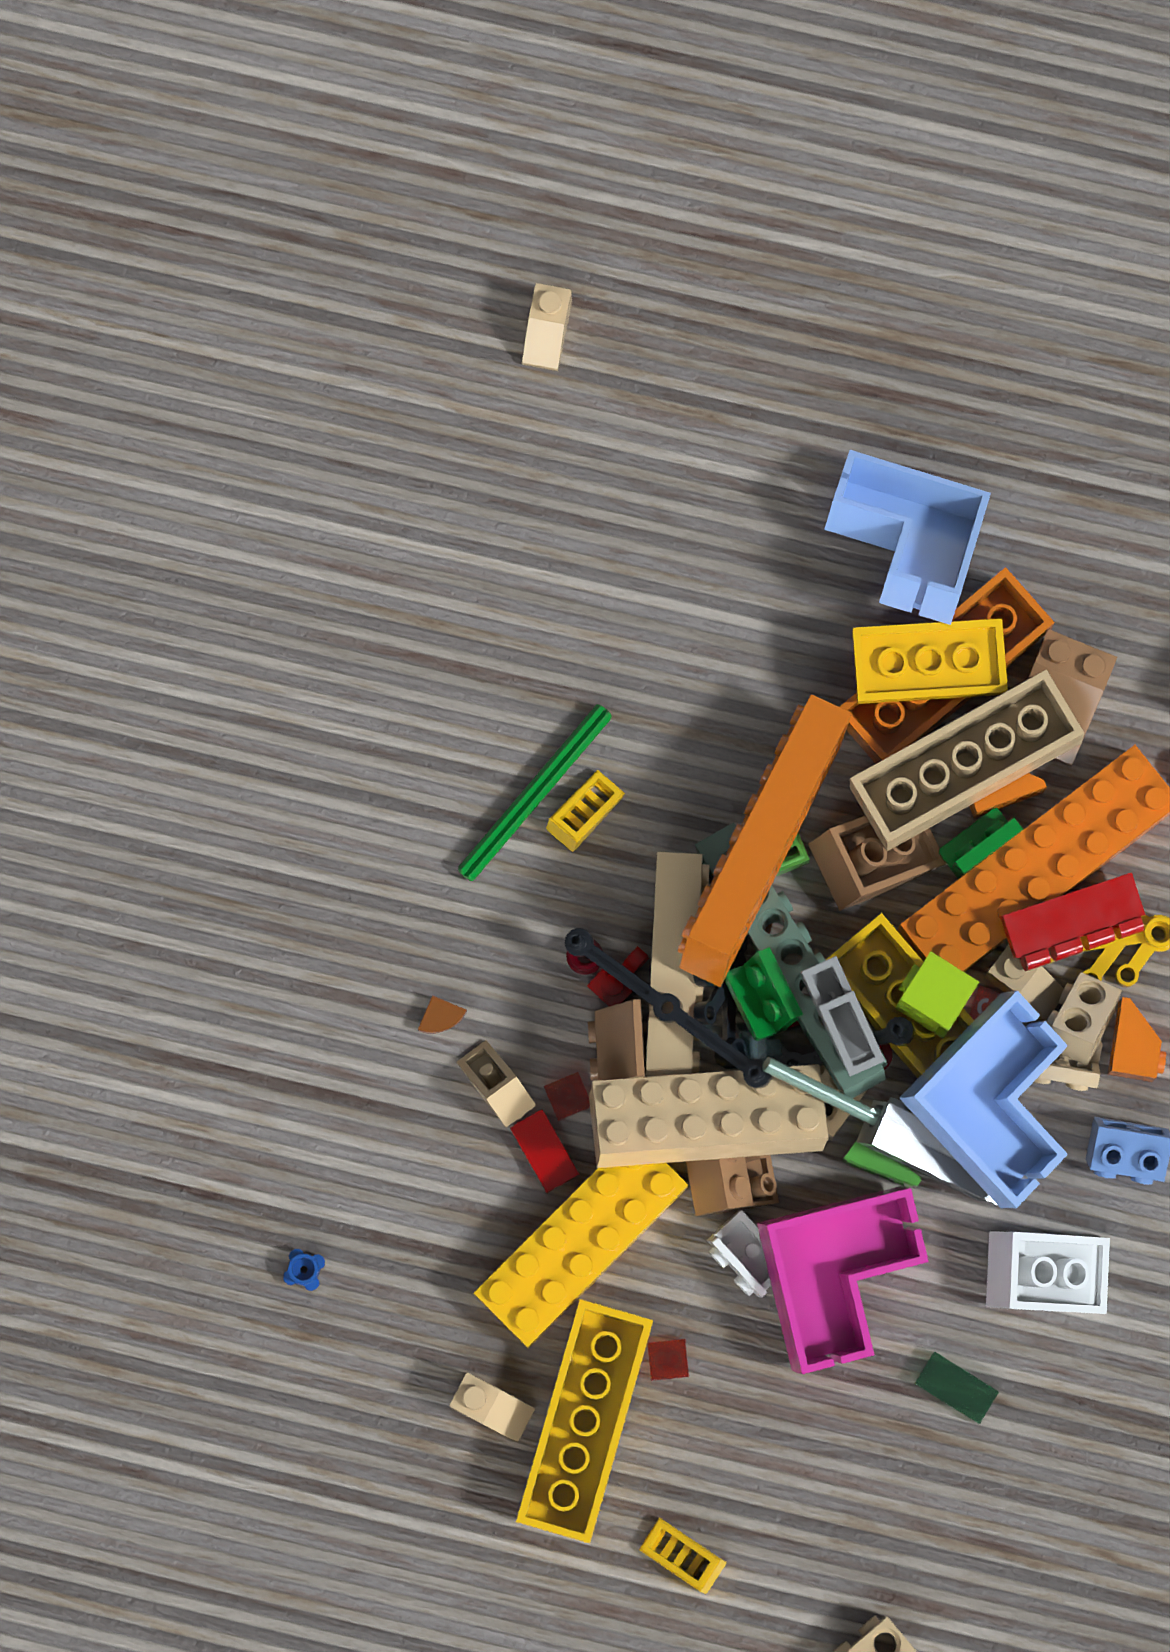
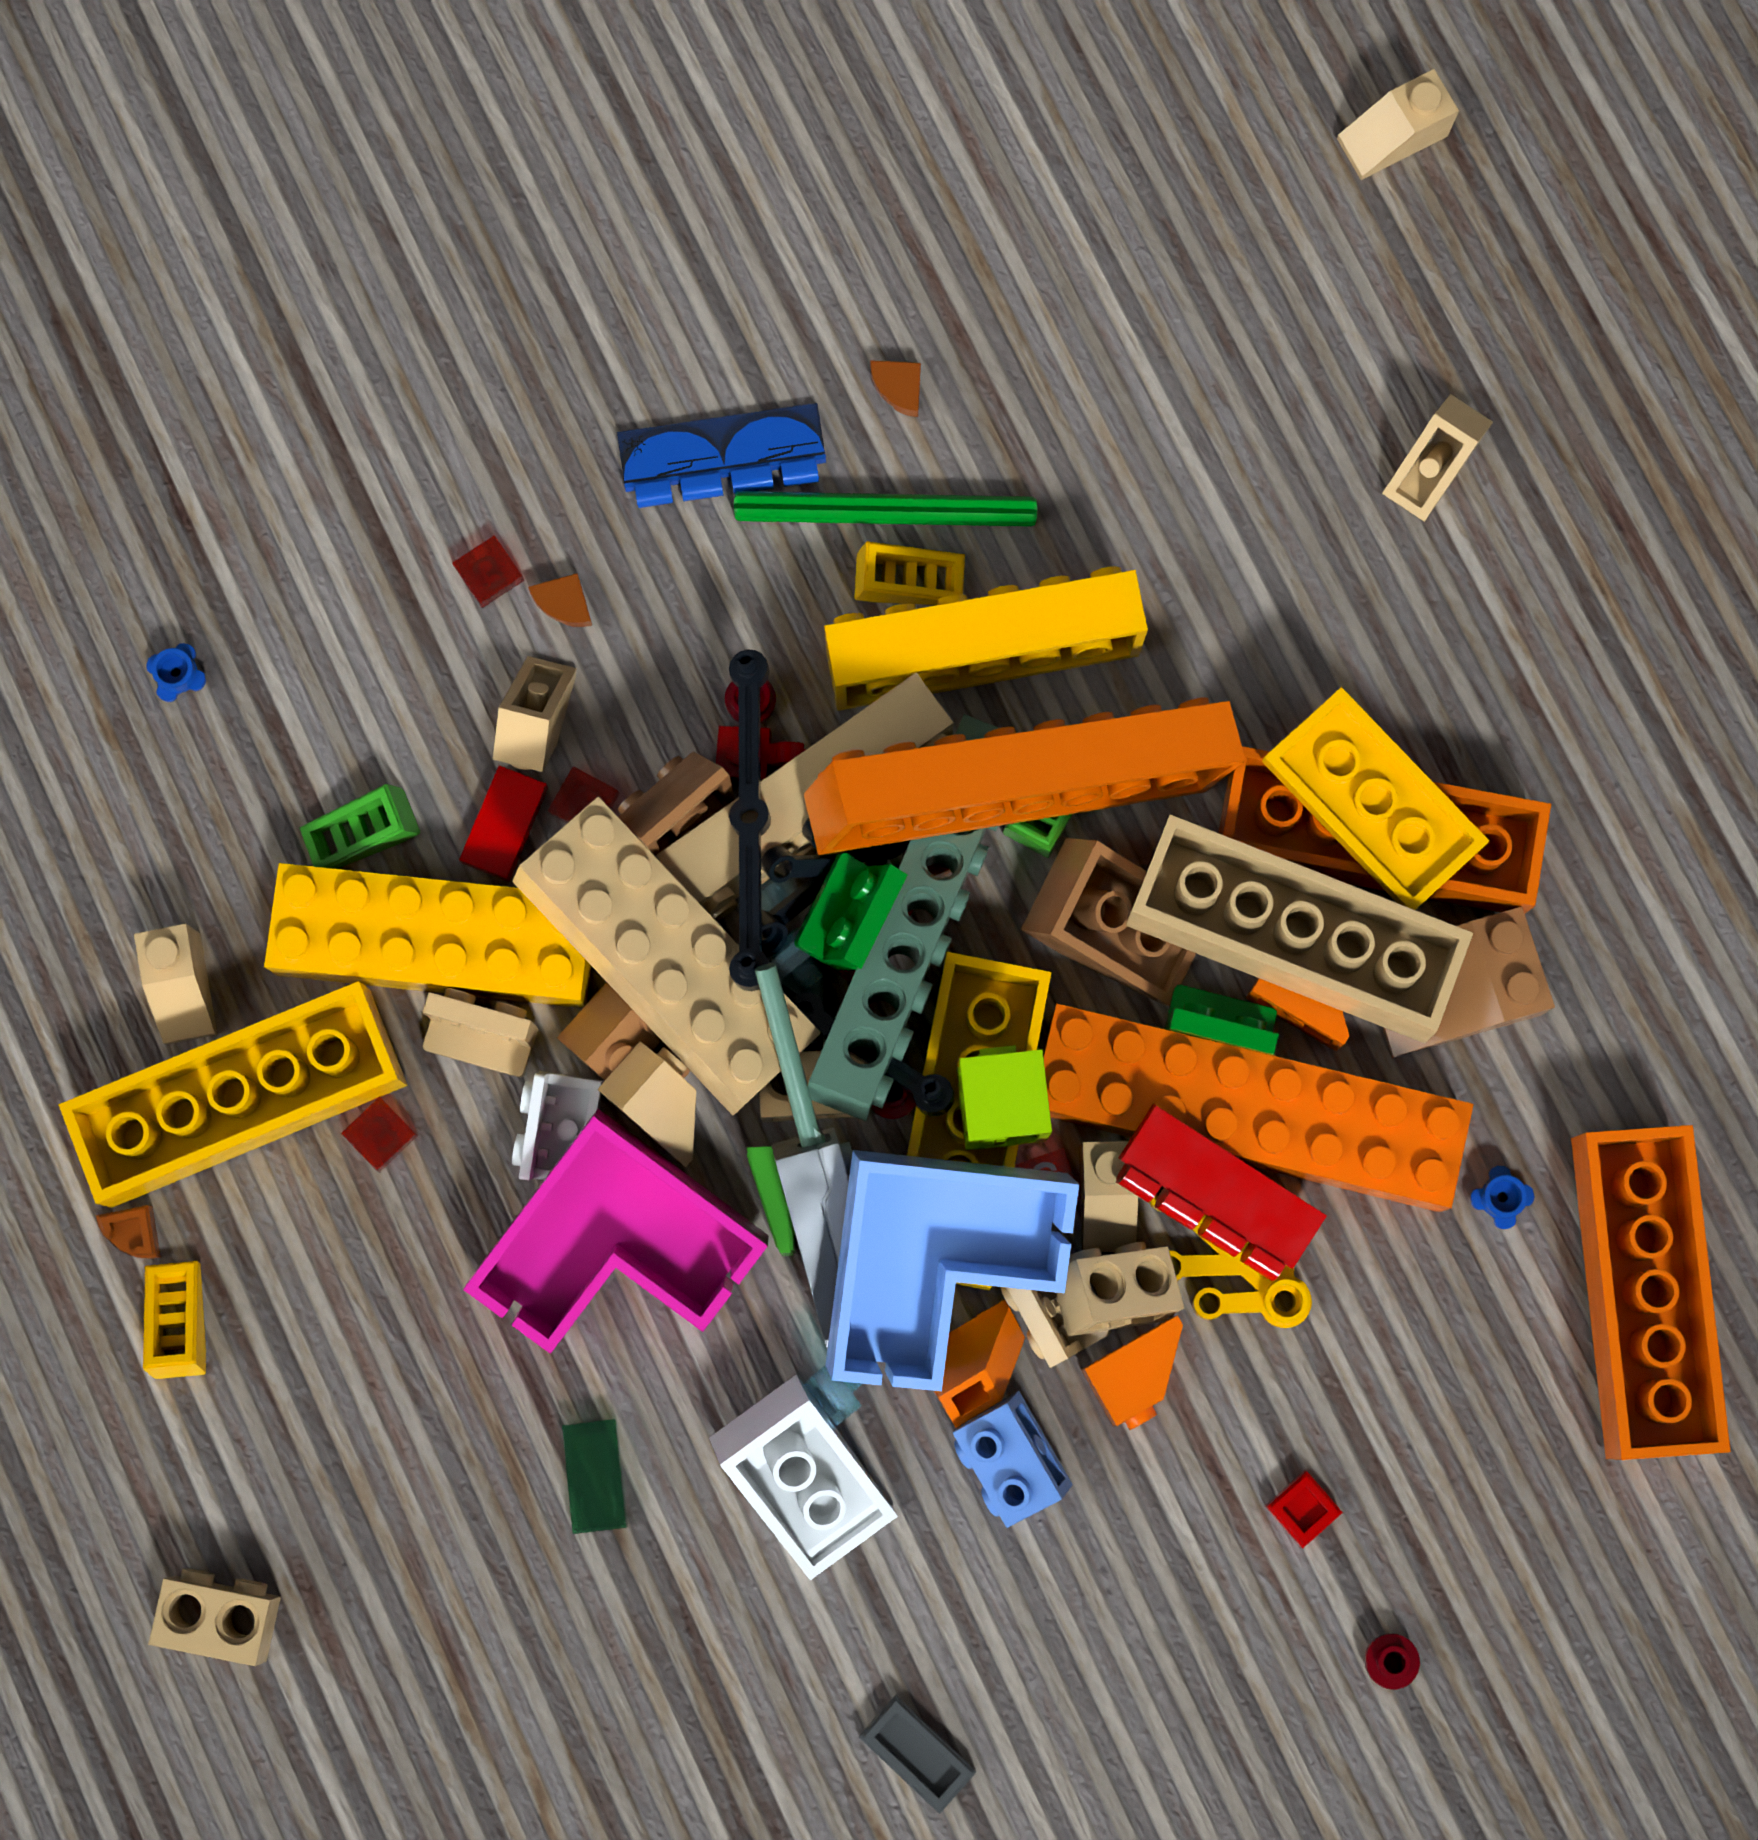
camera: 50 degrees right, 0 degrees up
(388, 1045) = (488, 571): none -> clear red tile
(419, 862) = (722, 447): none -> blue windscreen
(467, 727) = (898, 384): none -> dark orange tile
(492, 1205) = (399, 814): none -> bright green slope
(612, 1543) = (132, 1231): none -> dark orange tile
(659, 1259) = (478, 1035): none -> tan bracket
(662, 798) = (987, 637): none -> yellow brick
(757, 463) = (1437, 457): none -> tan slope
(778, 1186) = (656, 1098): none -> tan slope
(842, 1016) = (891, 1012): light grey slope -> none
(919, 517) = (1521, 674): light blue piece -> none
(1016, 1219) = (833, 1396): none -> clear light blue tile
(1065, 1124) = (980, 1363): none -> orange slope

